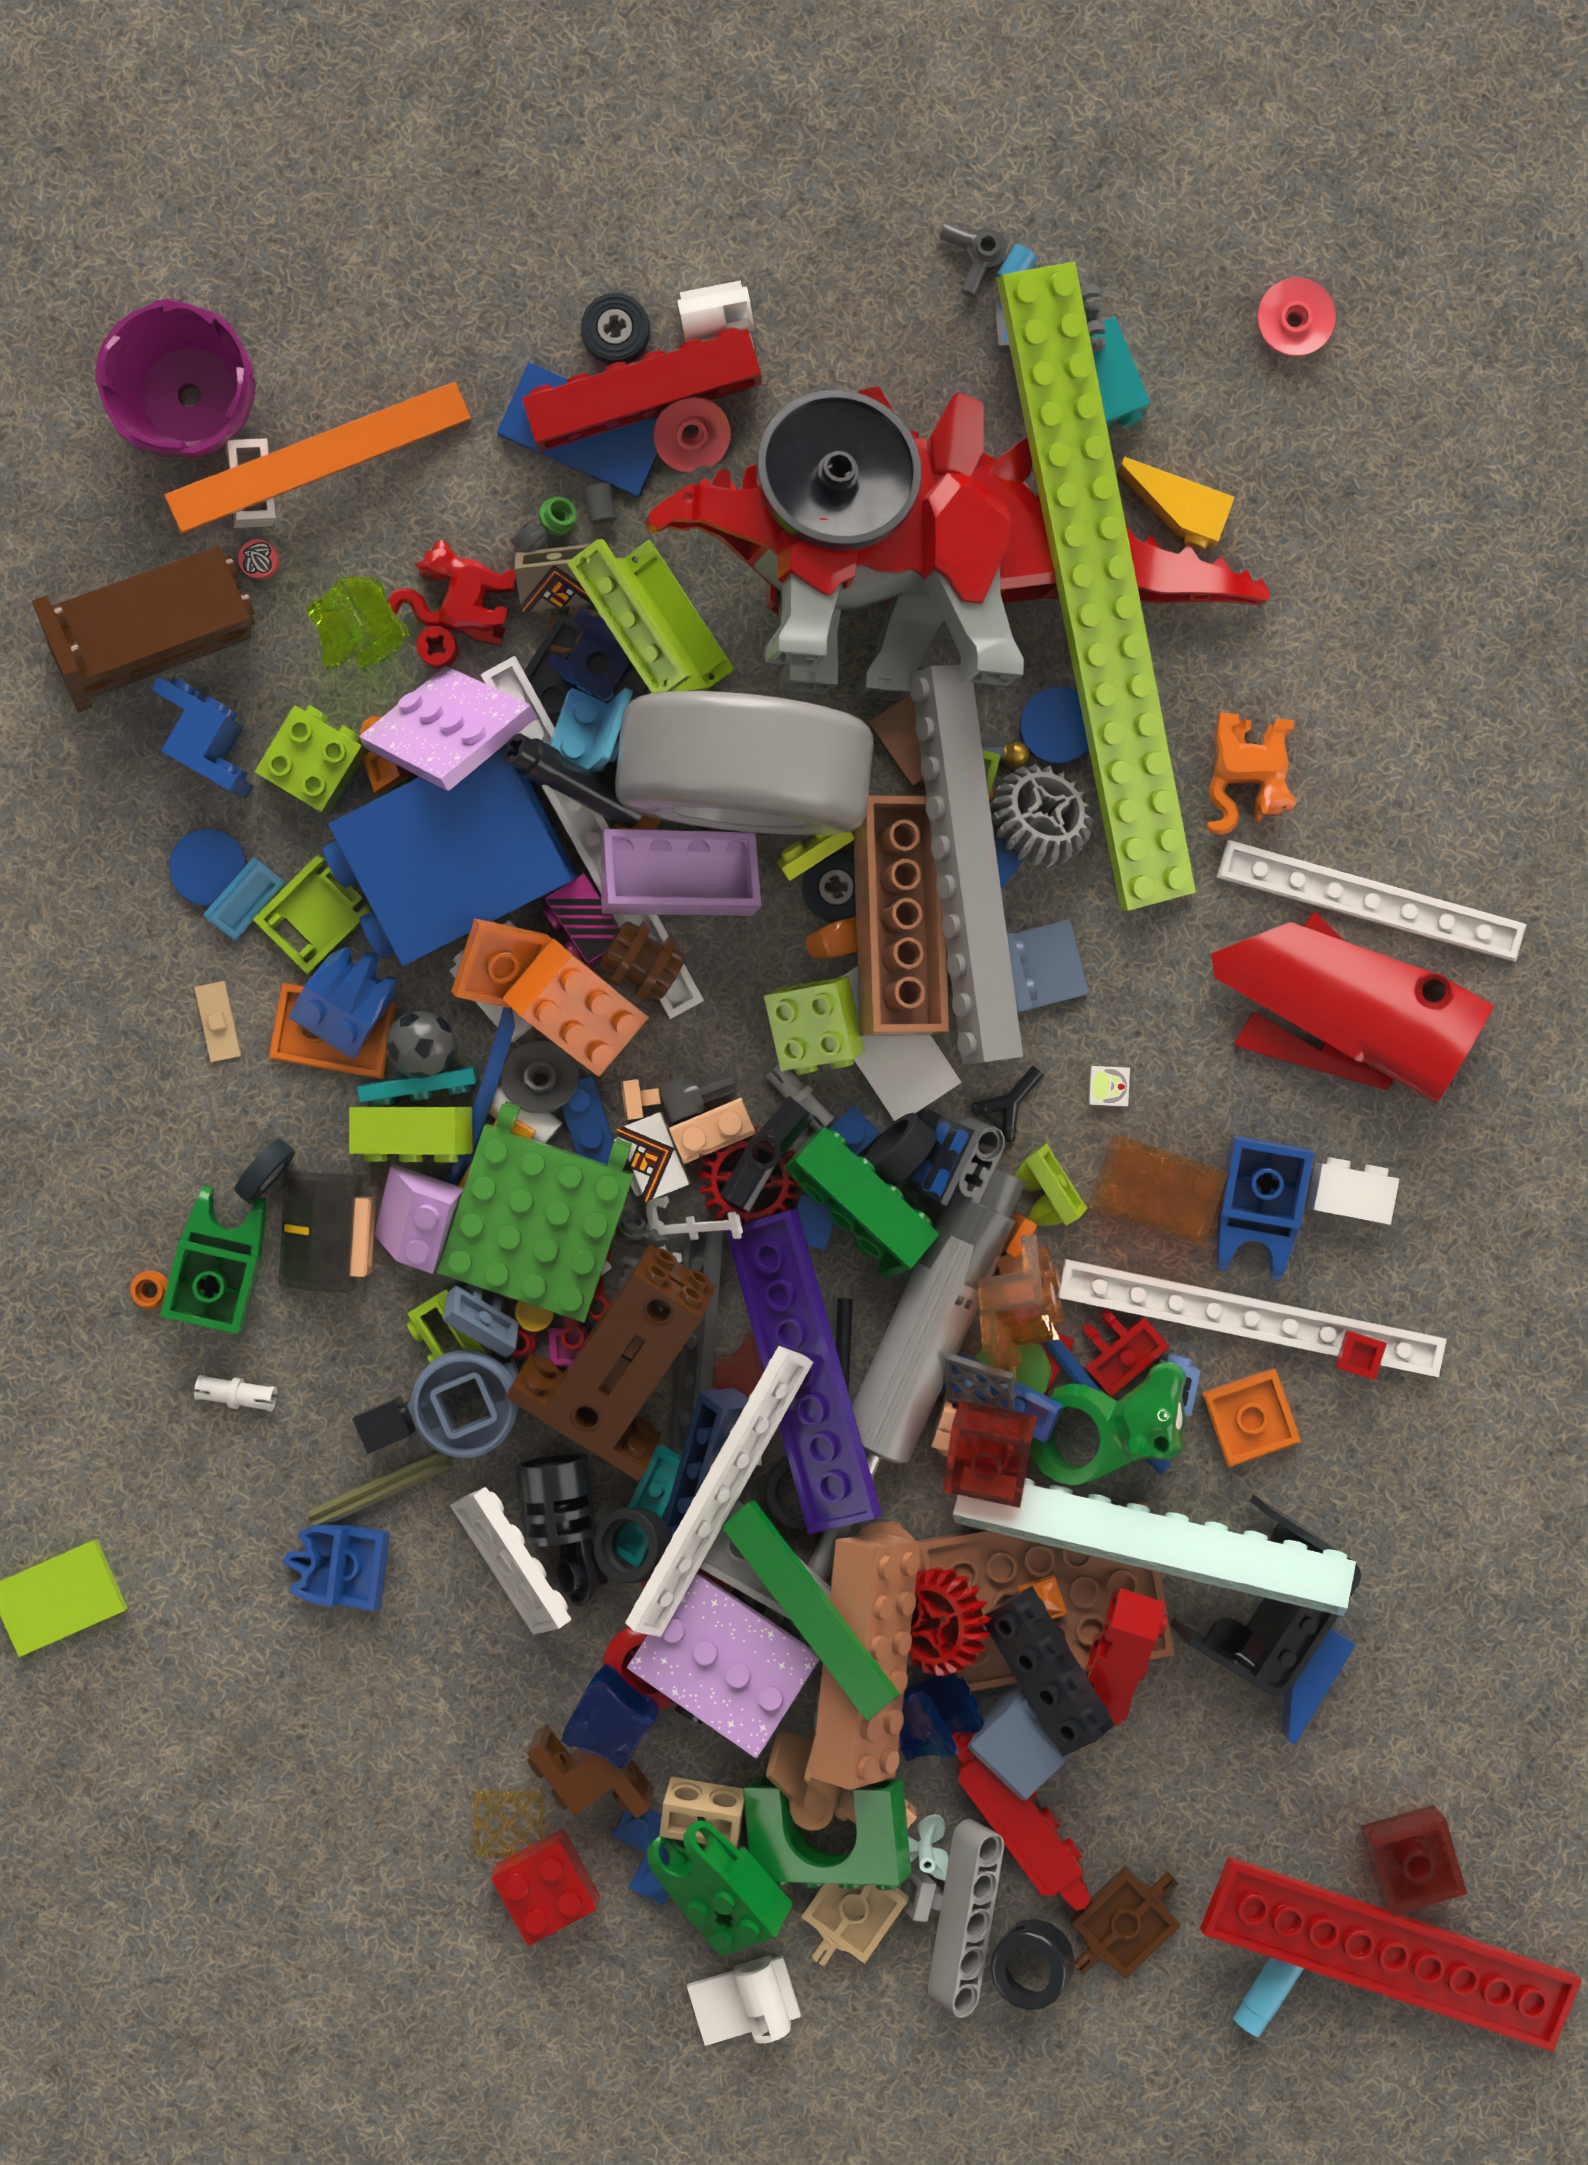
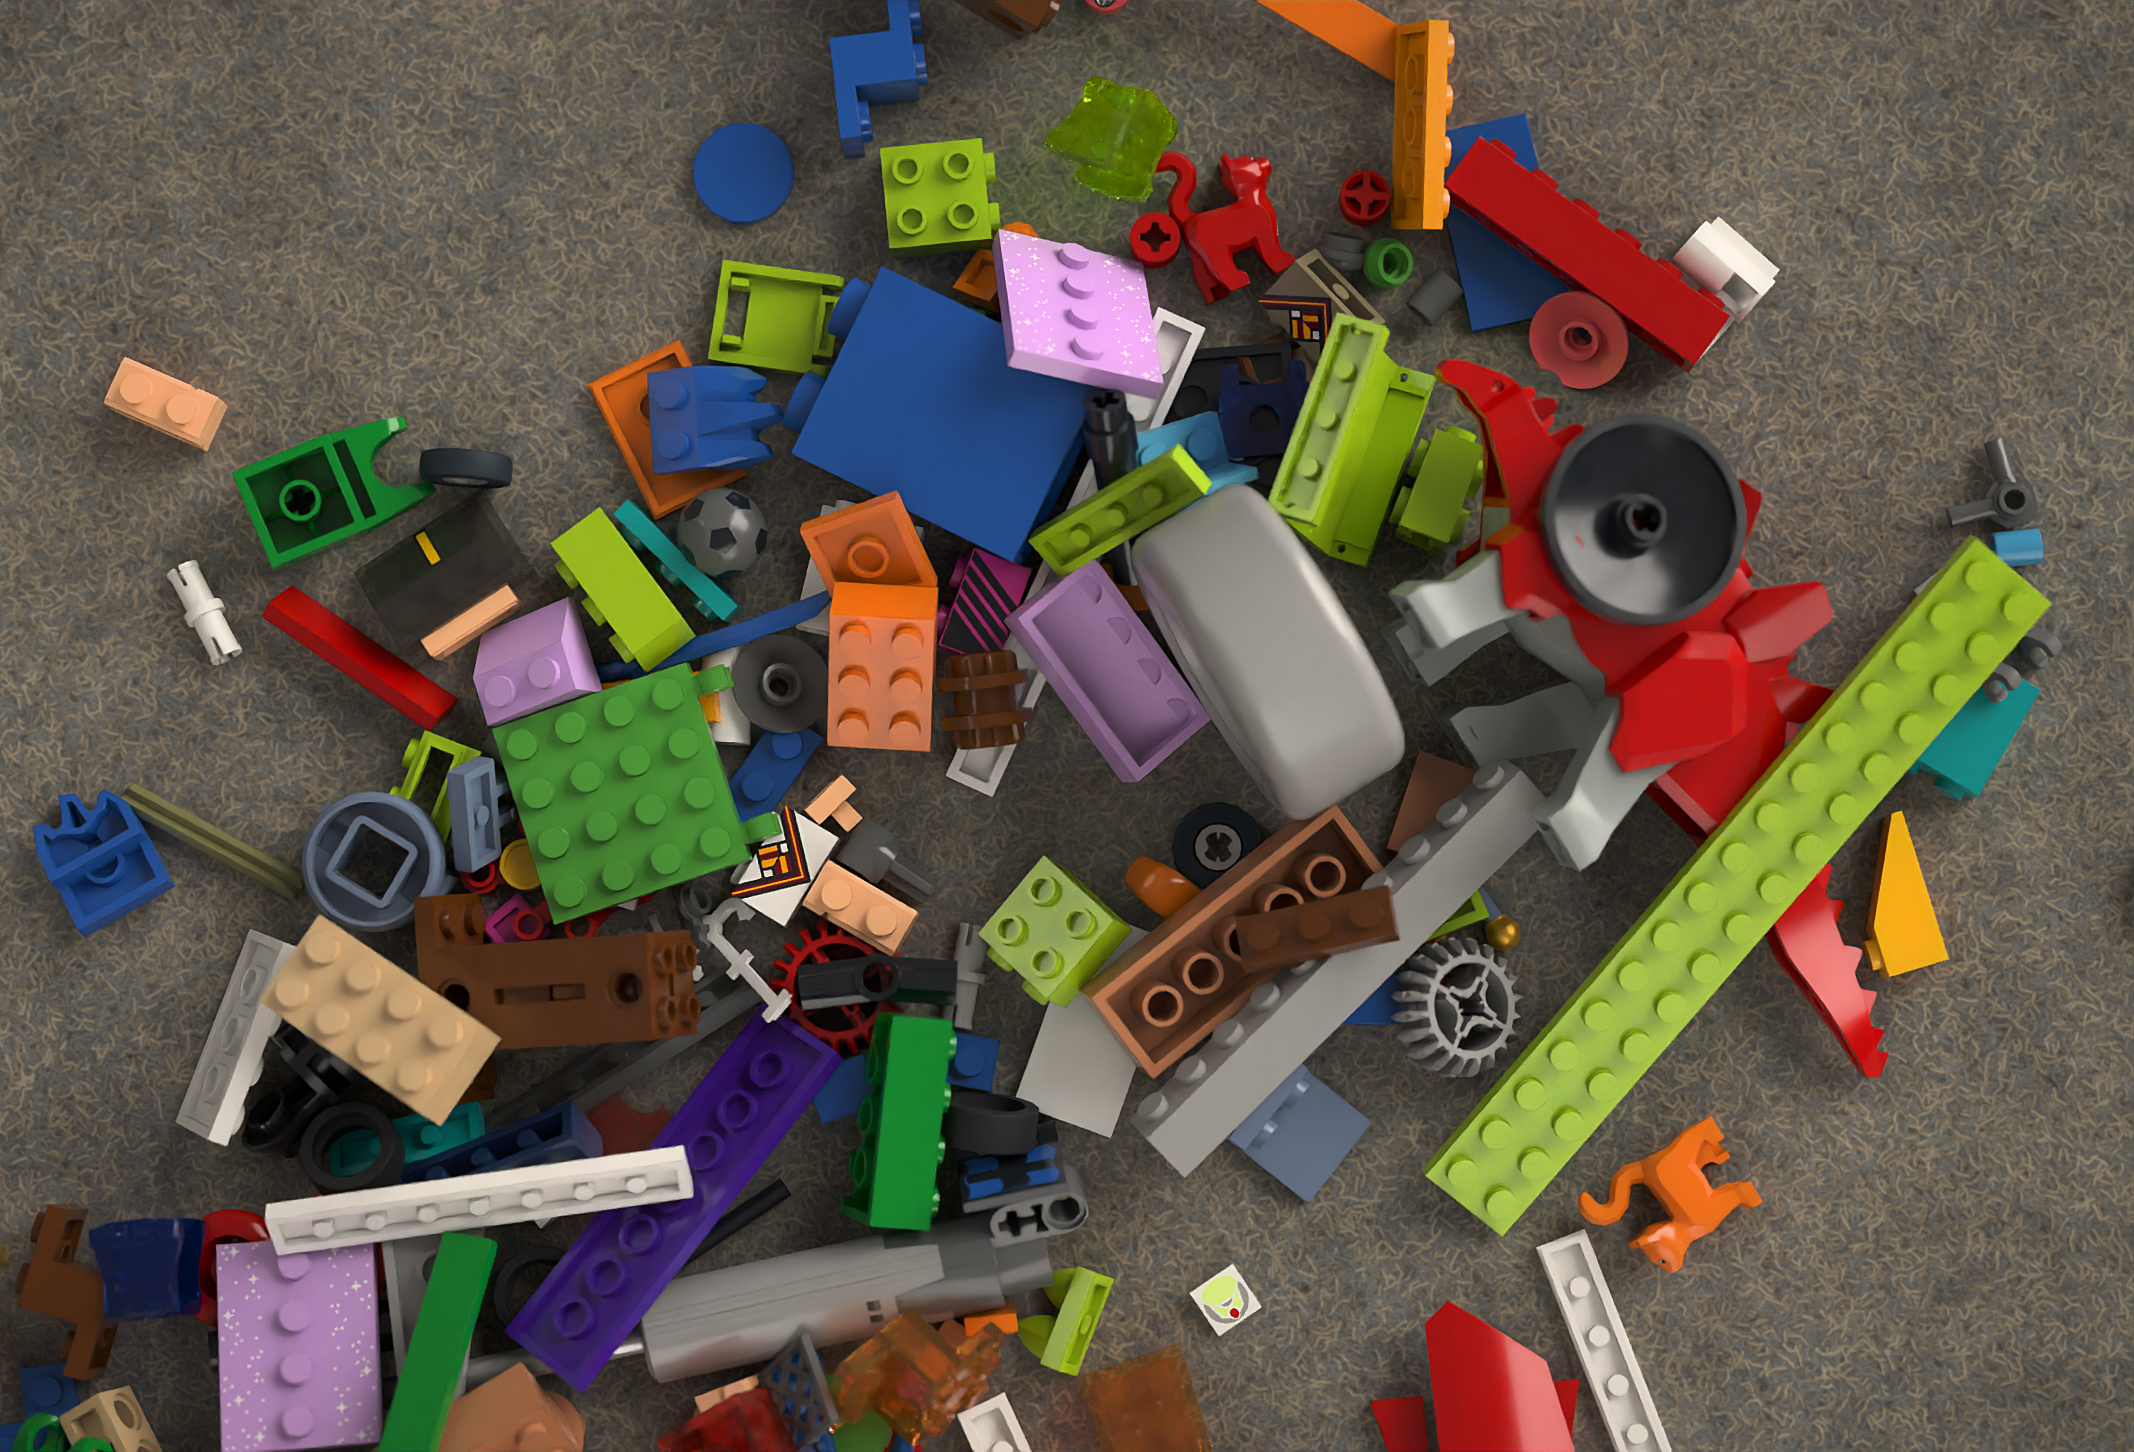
camera: 60 degrees right, 5 degrees down
(88, 1324) = (165, 404): none -> light nougat brick
(137, 1289) = (240, 427): orange plate -> none
(218, 1021) = (587, 302): tan piece -> none
(244, 898) = (738, 235): dark azure tile -> none
(333, 1319) = (360, 658): none -> red tile
(384, 1424) = (287, 794): black brick -> none
(487, 429) = (1419, 125): none -> light orange plate
(501, 494) = (1366, 188): none -> red wheel
(565, 1474) = (380, 1020): none -> tan brick
(590, 790) = (1120, 511): none -> lime plate
(597, 320) = (1633, 203): black bush -> none
(714, 577) = (1445, 474): none -> lime brick
(801, 857) = (1220, 785): neon yellow plate -> none
(935, 863) = (1317, 929): none -> reddish brown plate
(1008, 1103) = (1125, 1206): black piece -> none
(1054, 726) = (1562, 950): blue tile -> none

